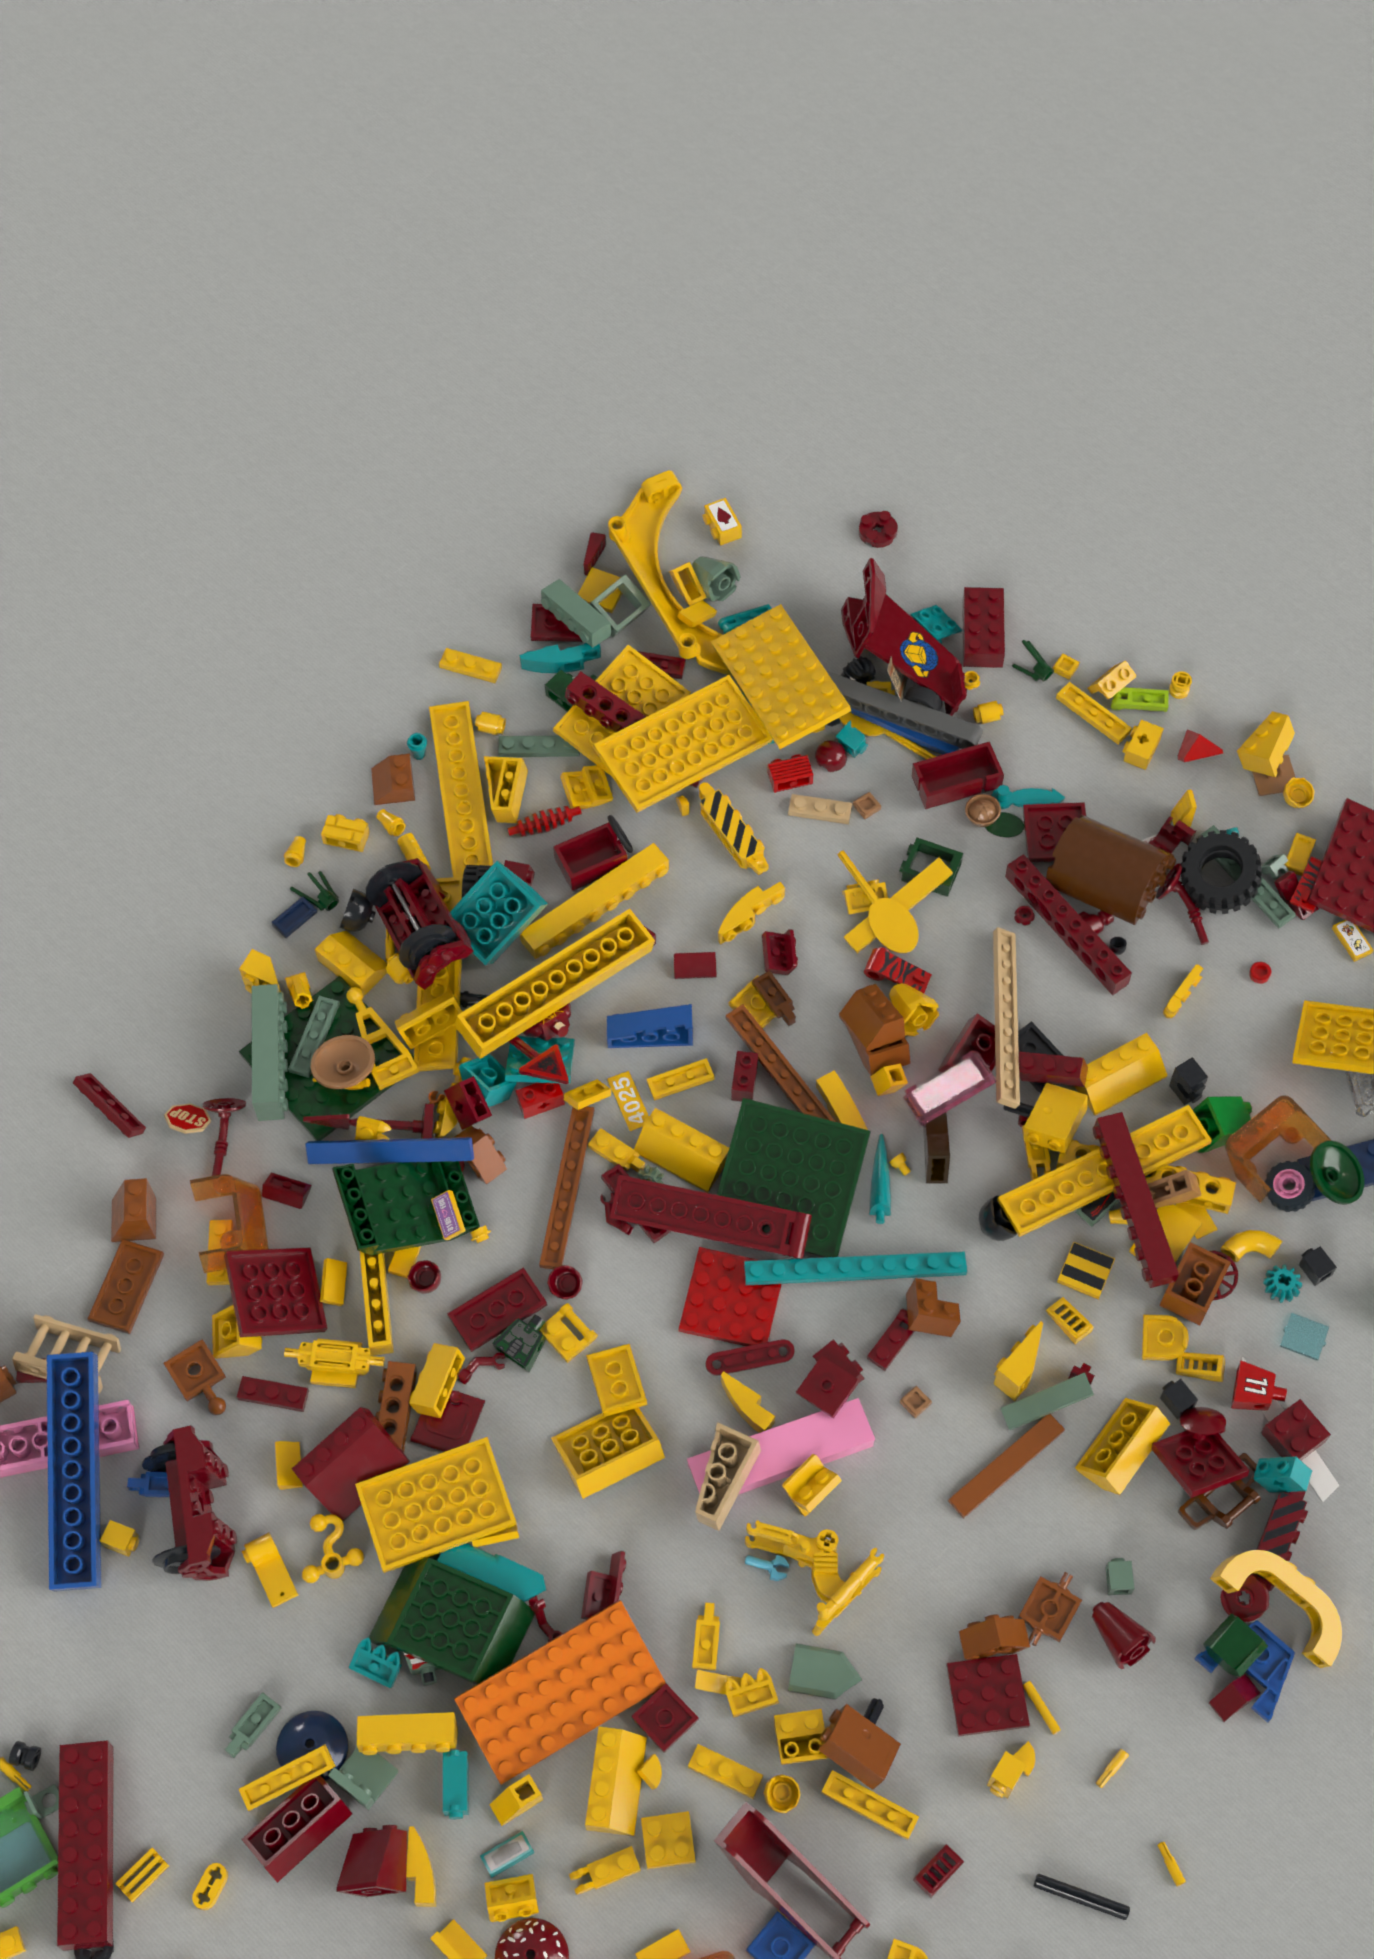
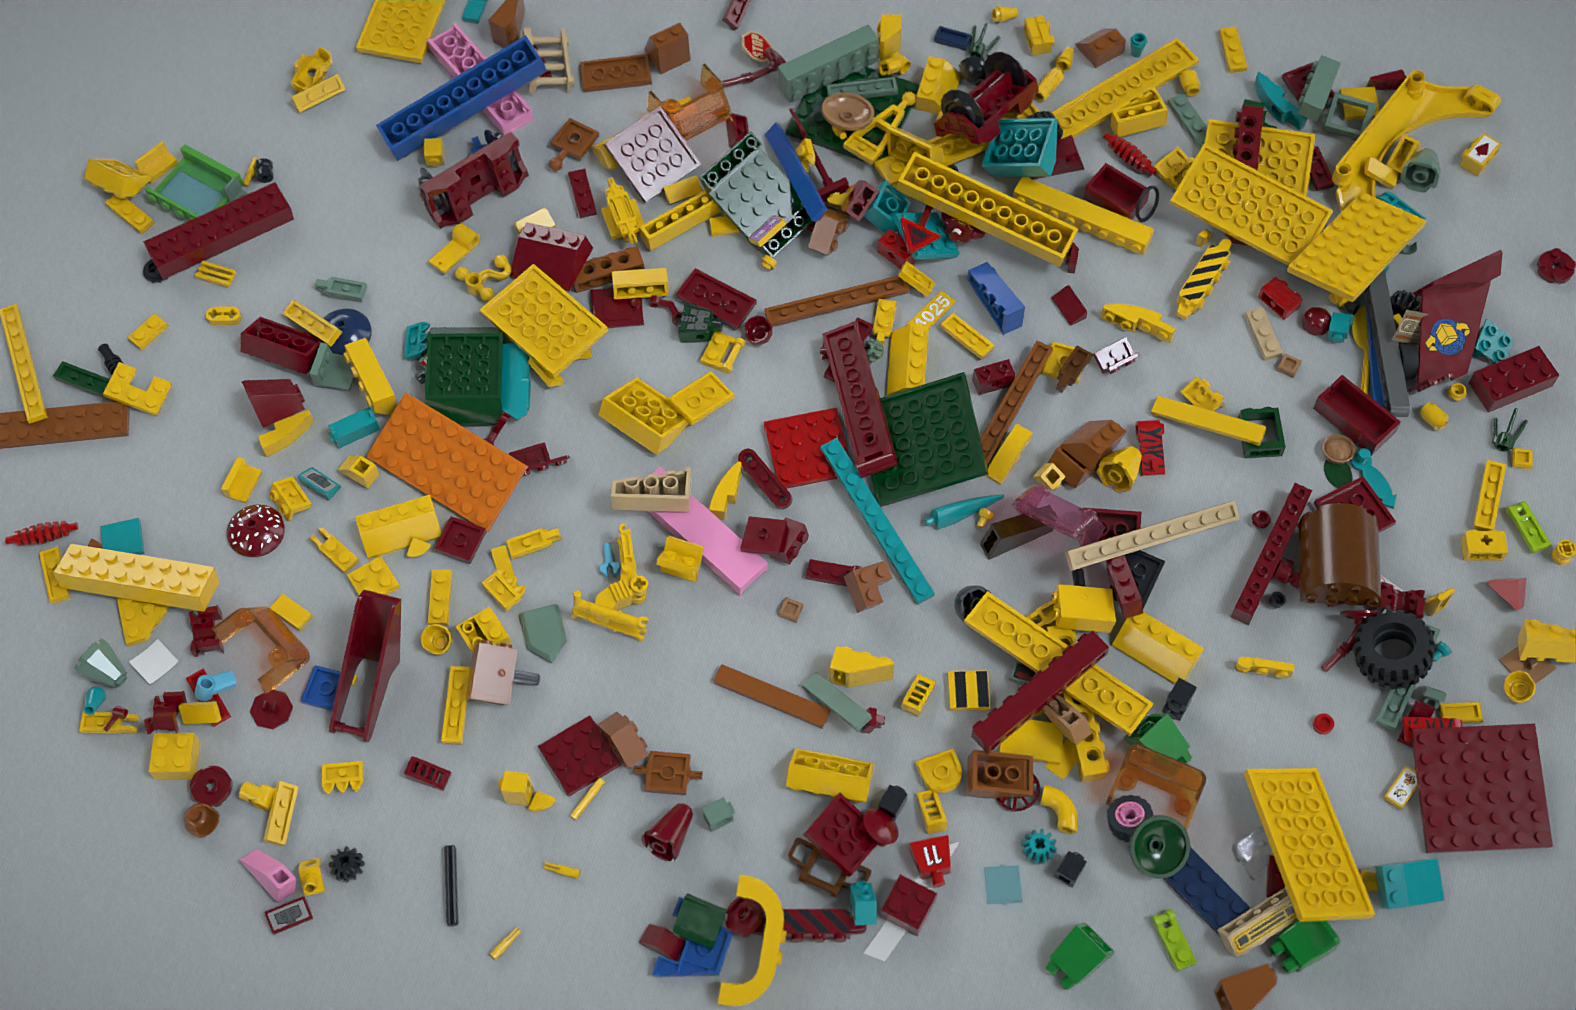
camera: 65 degrees right, 0 degrees up
(424, 1277) = (715, 241): dark red hair -> none
(887, 918) = (1192, 417): yellow piece -> none
(1113, 680) = (1530, 497): yellow bracket -> none

